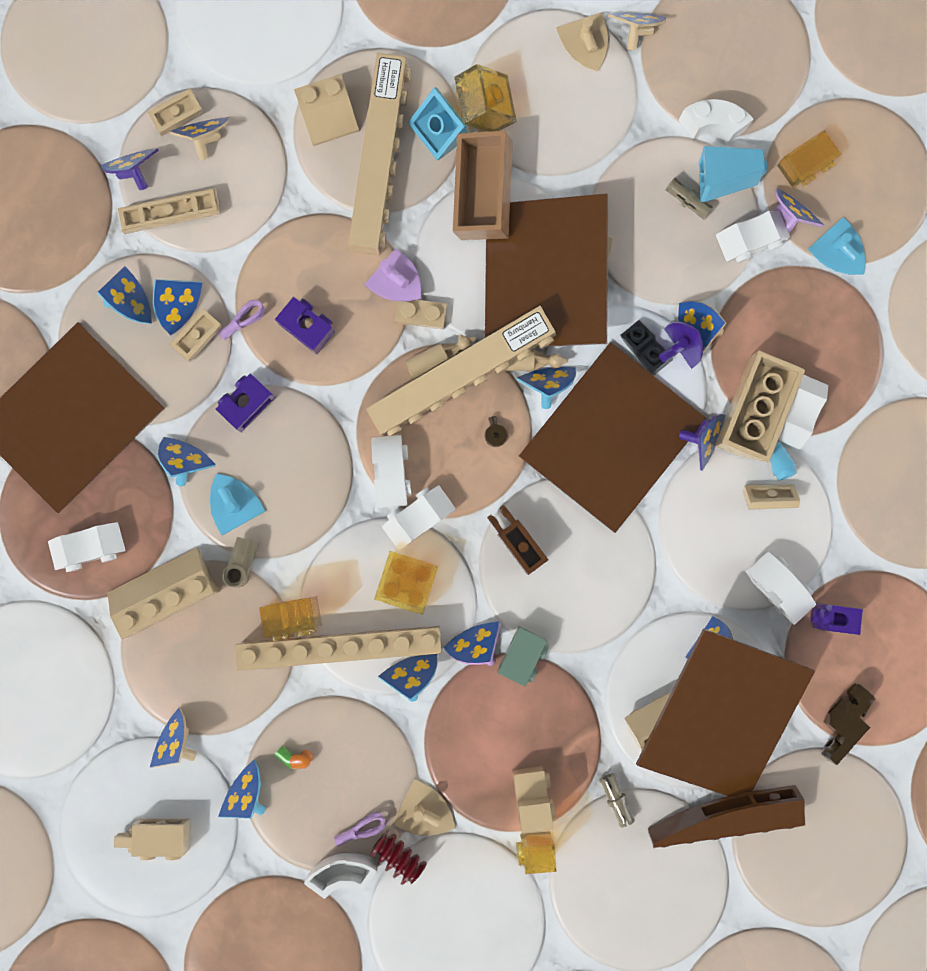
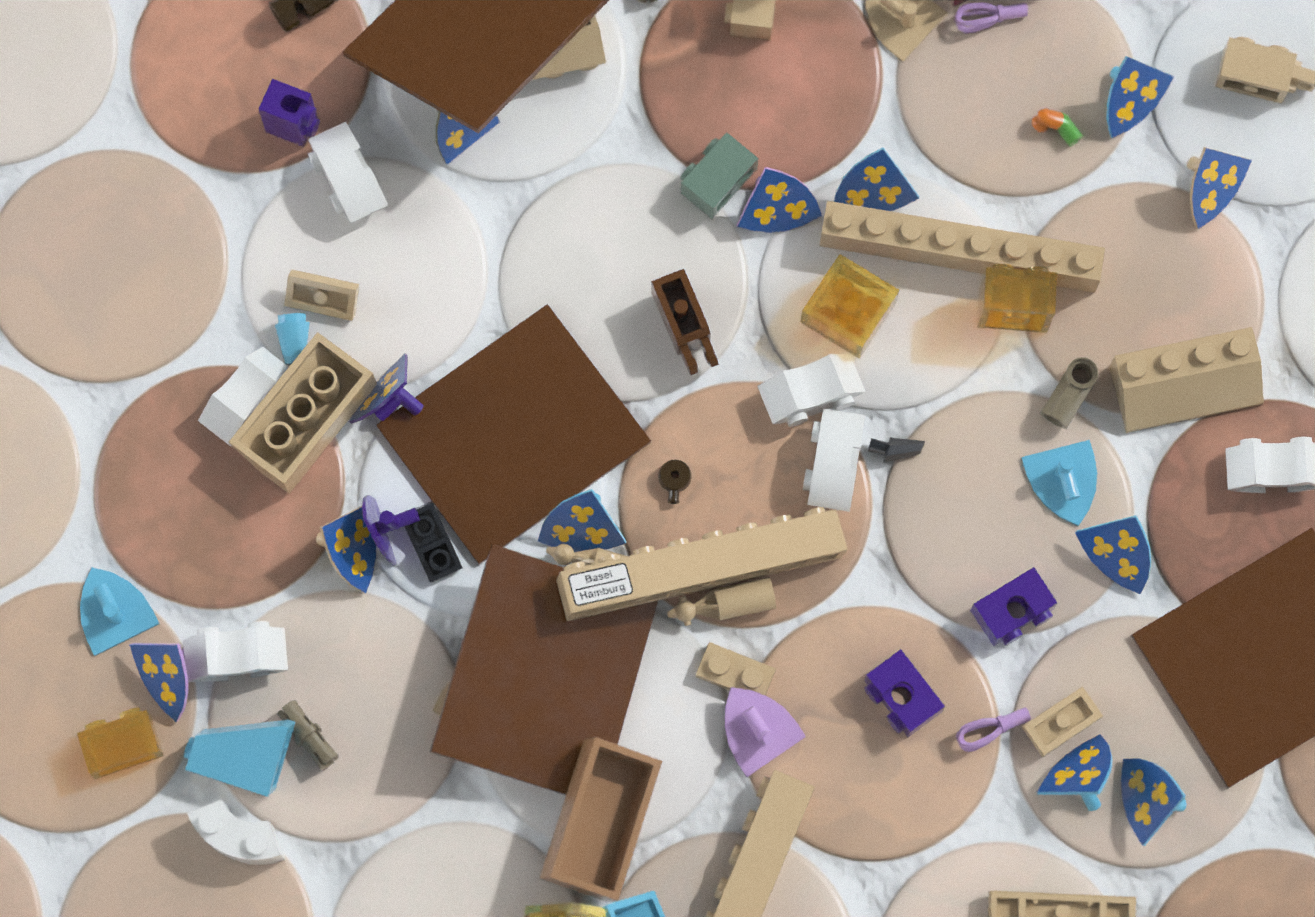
camera: 160 degrees left, 10 degrees down
(351, 493) = (896, 448): none -> black bar

